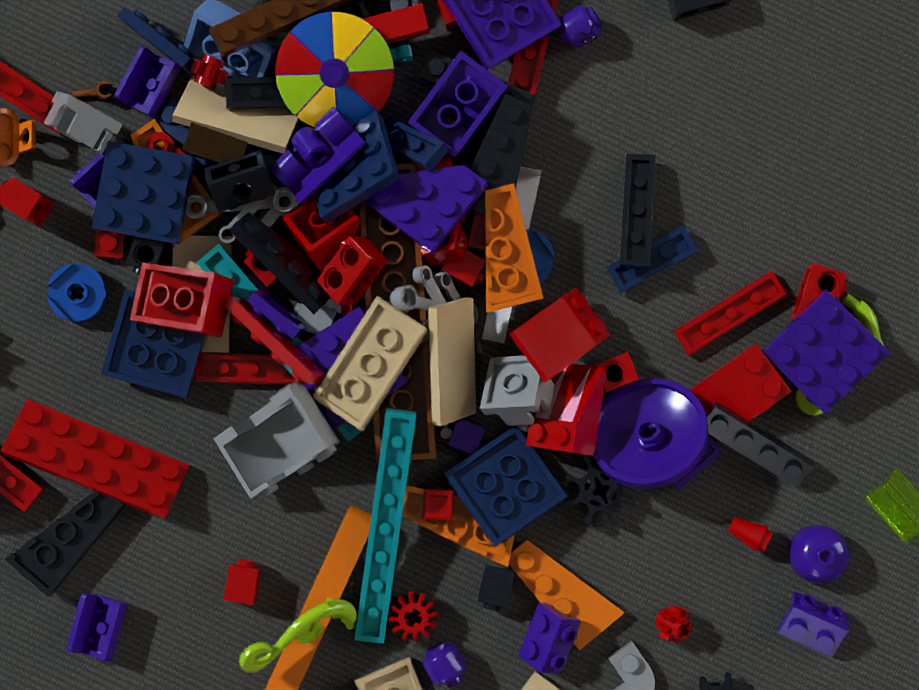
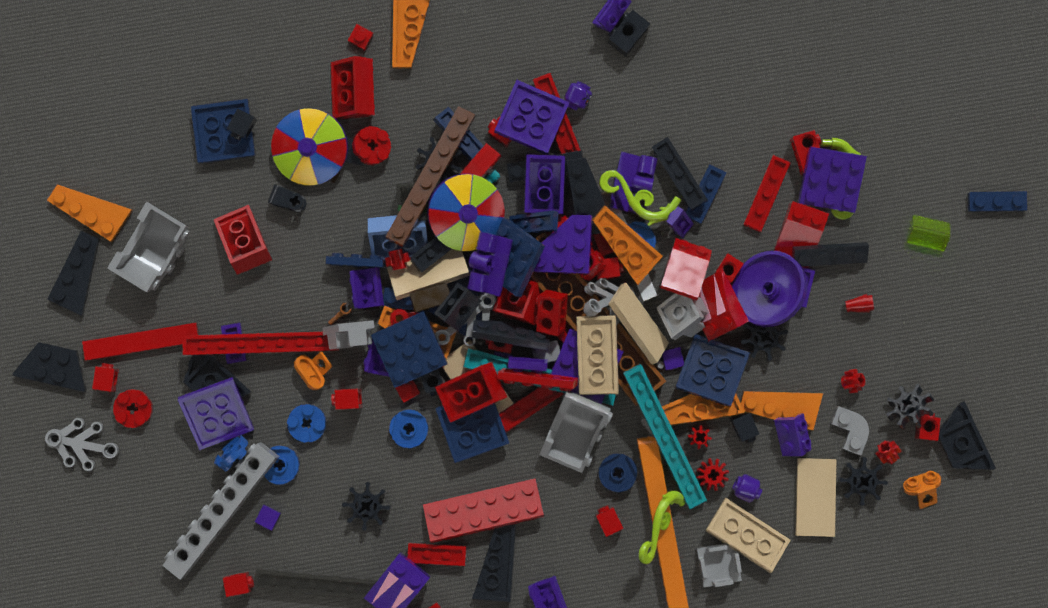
camera: 35 degrees left, 0 degrees up
(286, 517) = (613, 482): none -> dark blue plate
(424, 564) = (694, 436): none -> red gear
(438, 505) = (684, 405): red tile -> none
(555, 204) = (634, 201): none -> lime plant
(571, 183) = (638, 174): none -> dark purple panel
(594, 271) = (679, 222): none -> dark purple plate
(814, 624) = (927, 328): dark purple bracket -> none
(818, 554) = (903, 289): dark purple cylinder -> none

